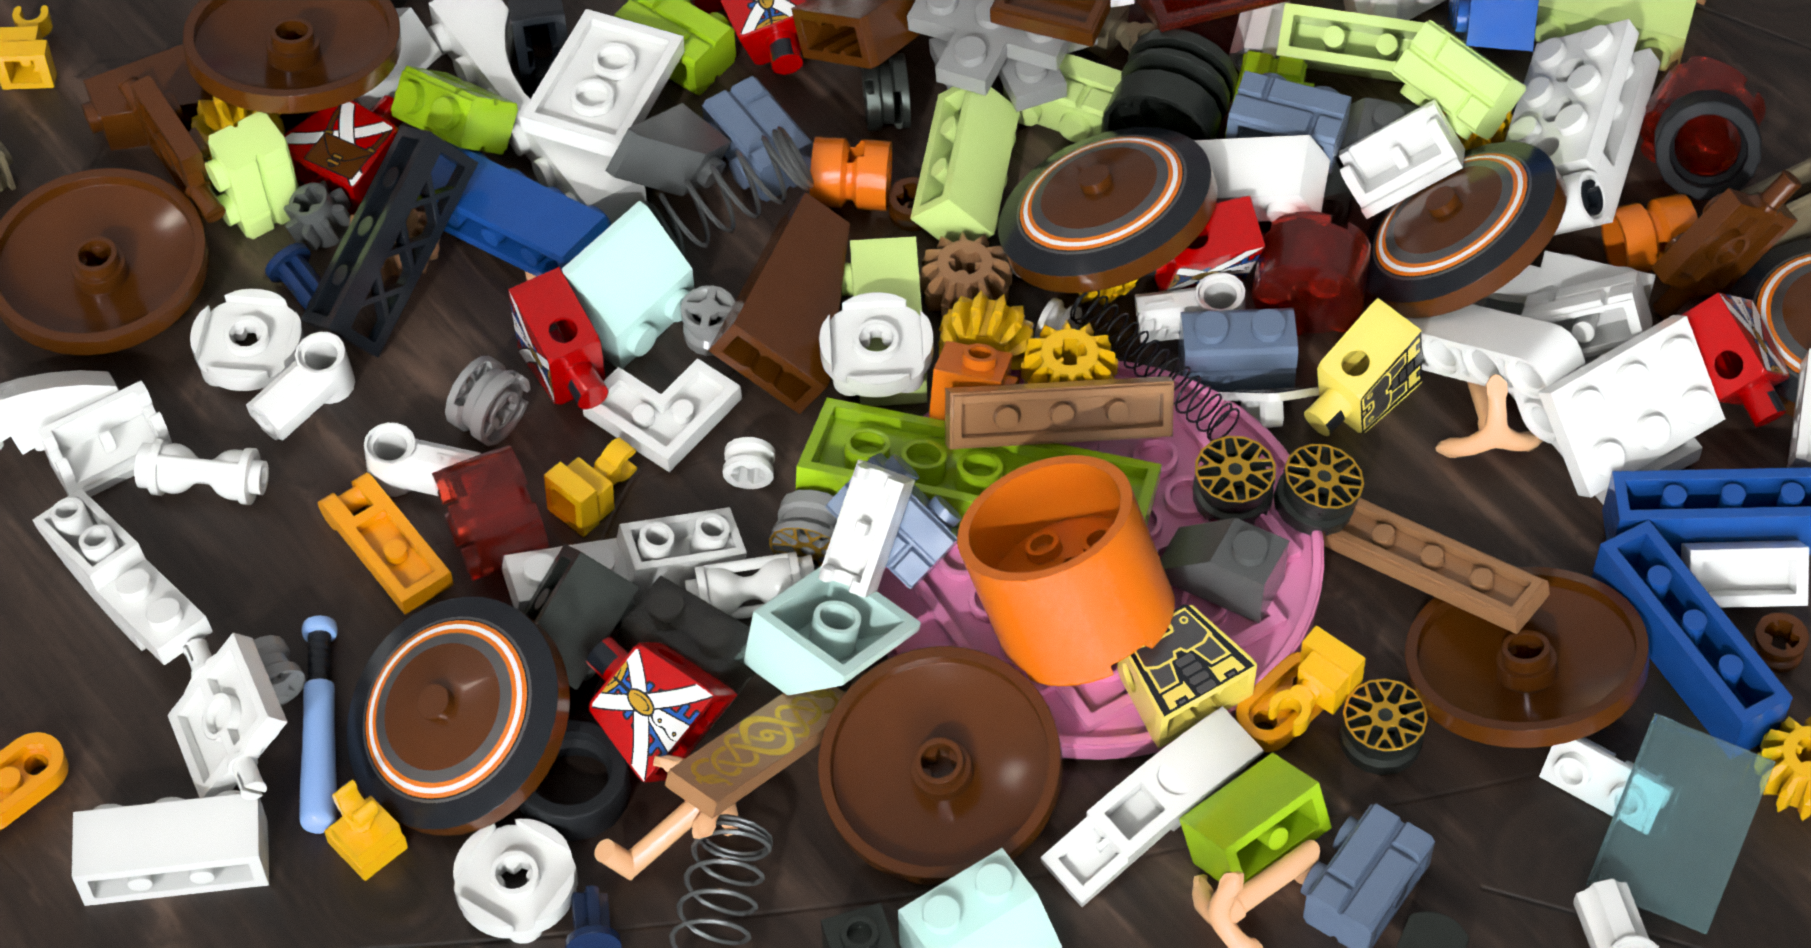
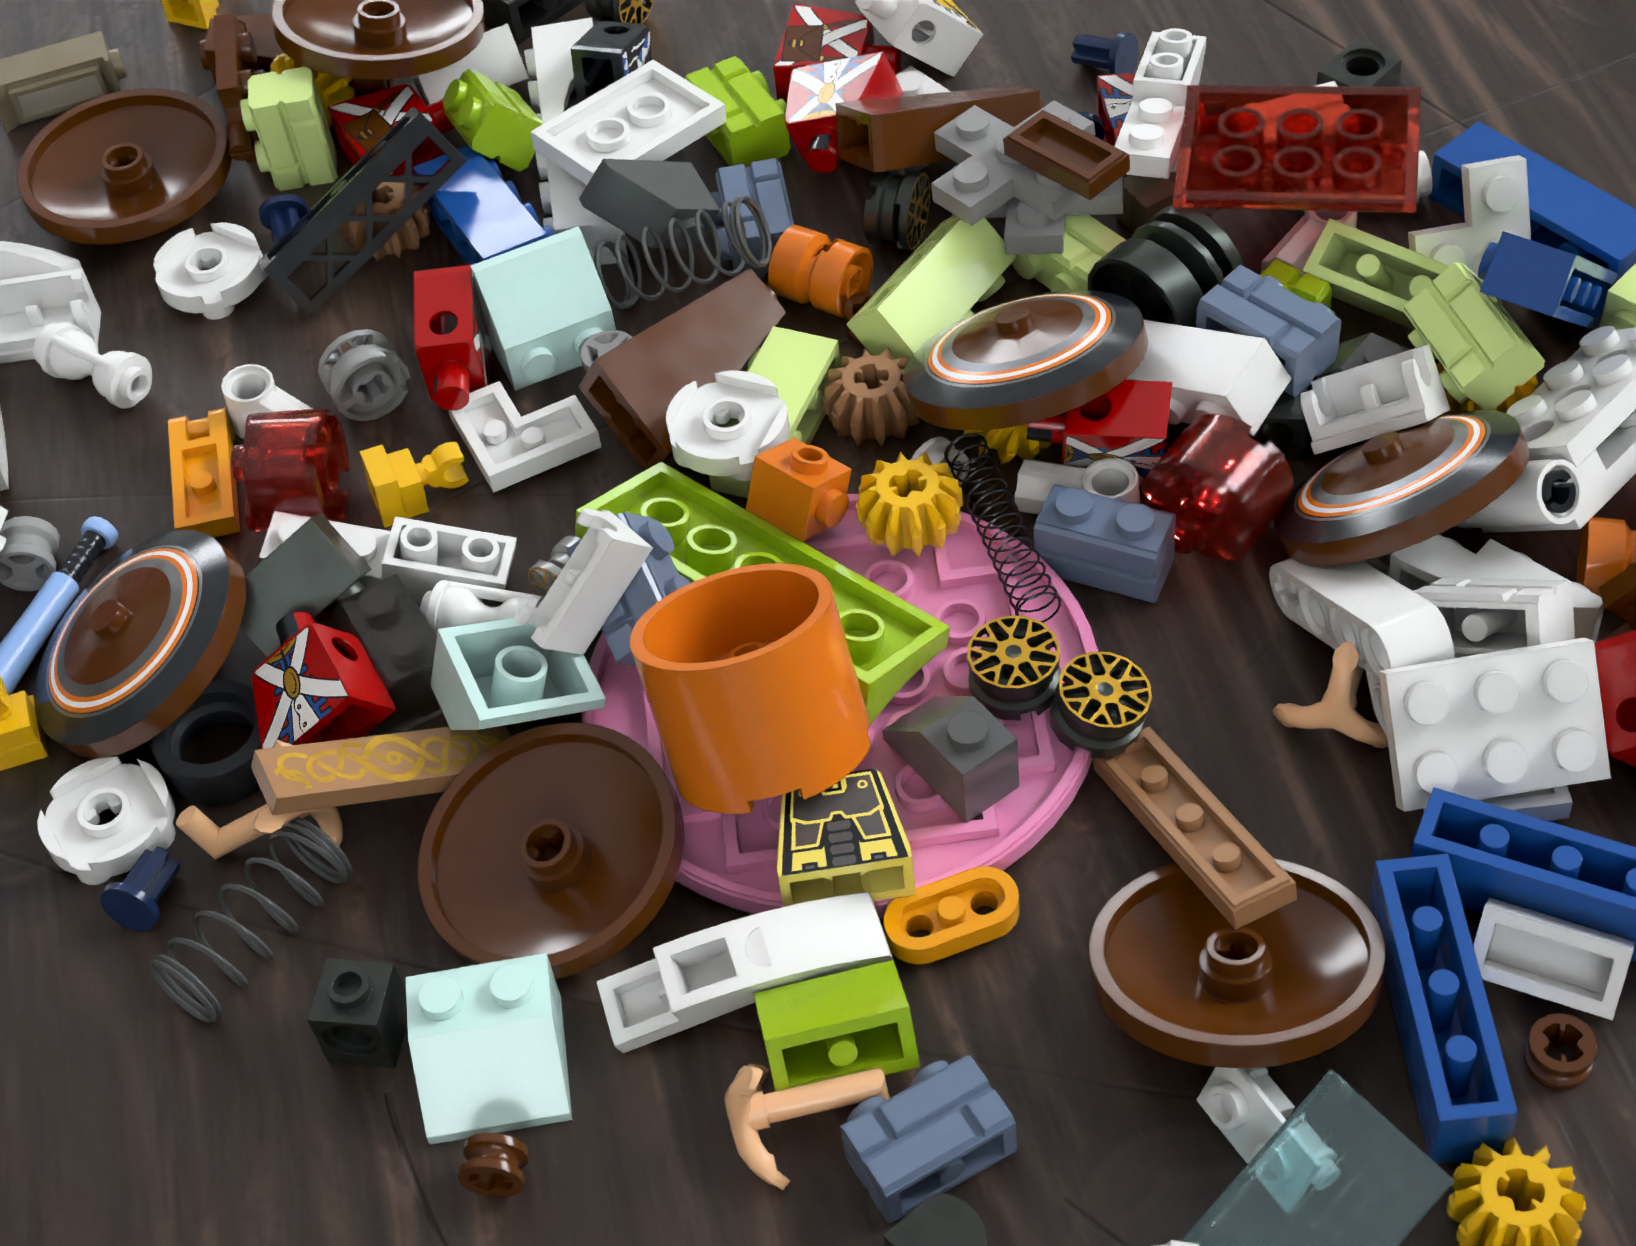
camera: 30 degrees right, 5 degrees down
(304, 386) = (240, 312): white piece -> none
(318, 215) = (323, 171): dark grey gear -> none
(749, 463) = (560, 501): white bush -> none
(989, 324) = (852, 439): yellow gear -> none
(1058, 412) = (866, 540): medium nougat tile -> none
(1267, 403) = (1103, 606): white piece -> none
(1325, 678) = (992, 896): yellow piece -> none
(1367, 371) = (1225, 604): light yellow torso -> none
(1400, 723) = (1045, 963): pearl dark grey wheel -> none

